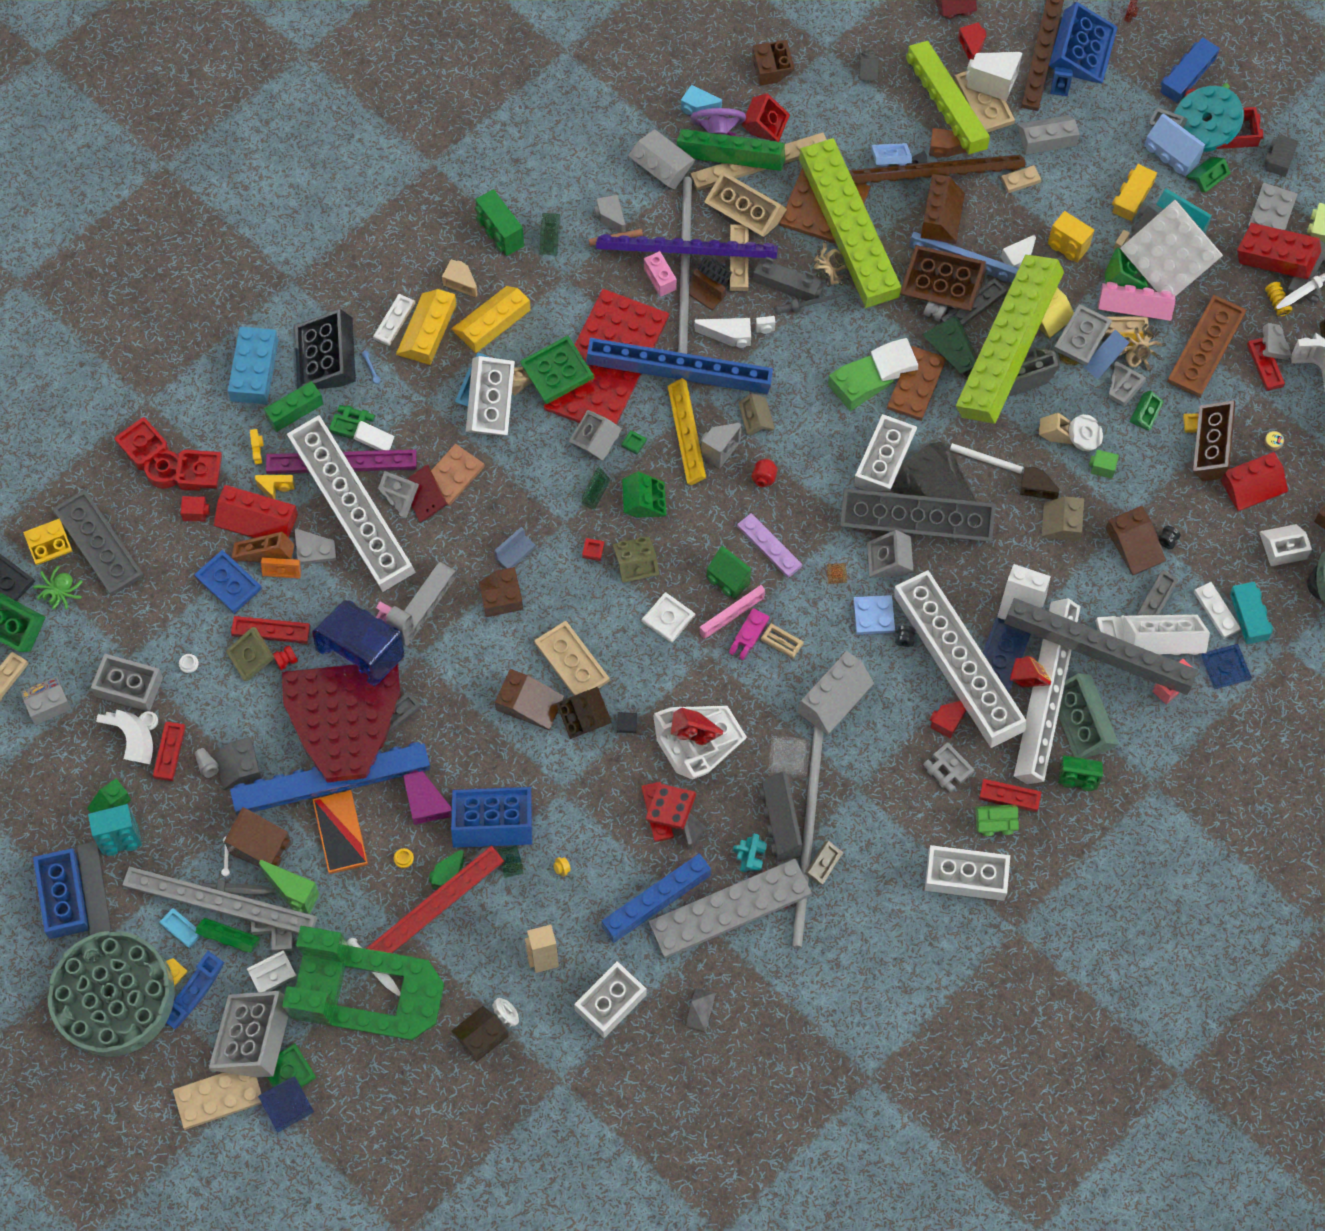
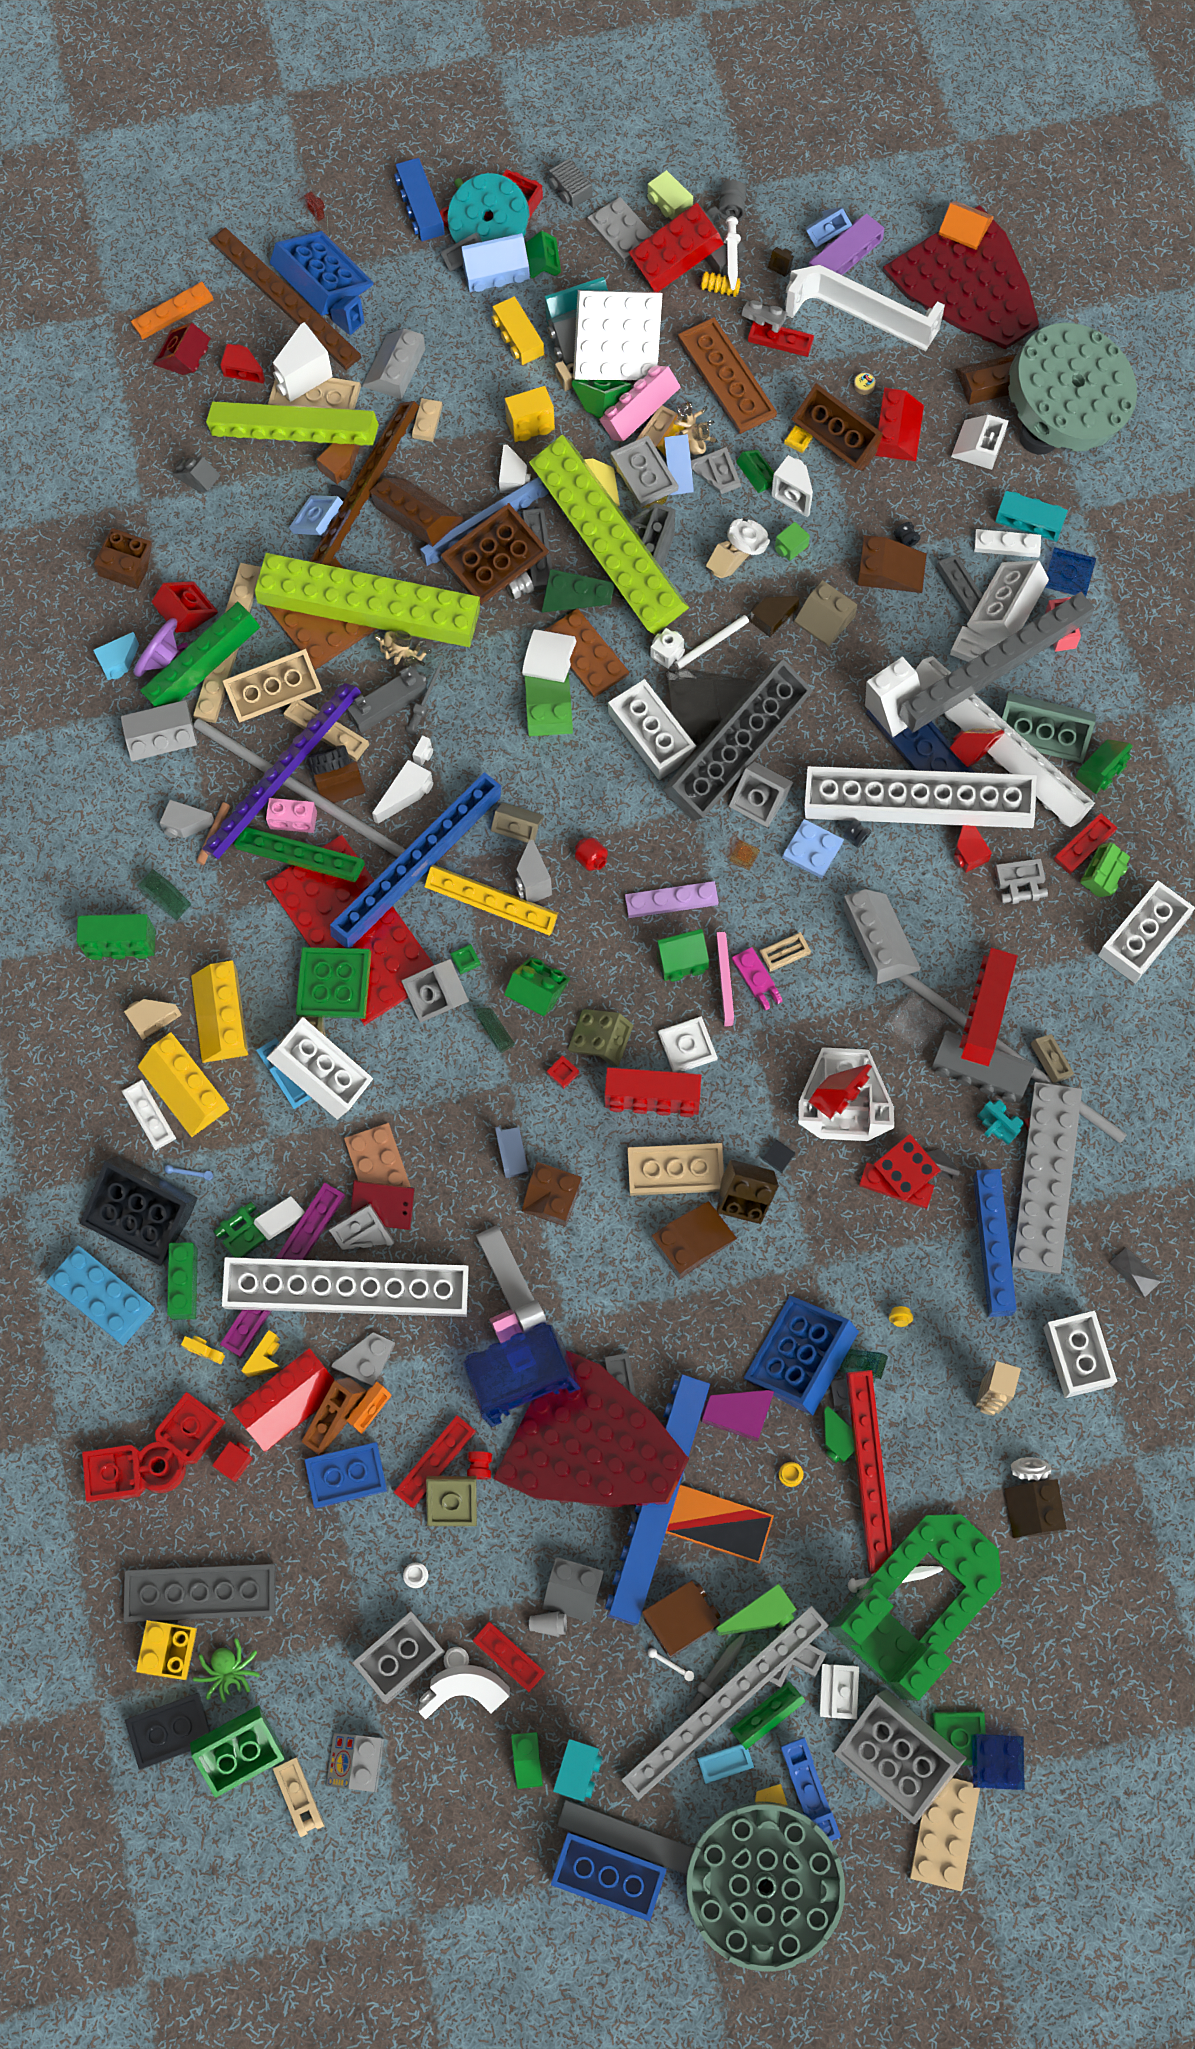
camera: 55 degrees left, 5 degrees up
(615, 611) = (652, 1092): none -> red brick
(634, 294) = (299, 854): none -> green plate
(826, 790) = (989, 1006): none -> red brick
(957, 430) = (667, 647): none -> white brick
(1147, 436) = (793, 485): none -> white slope

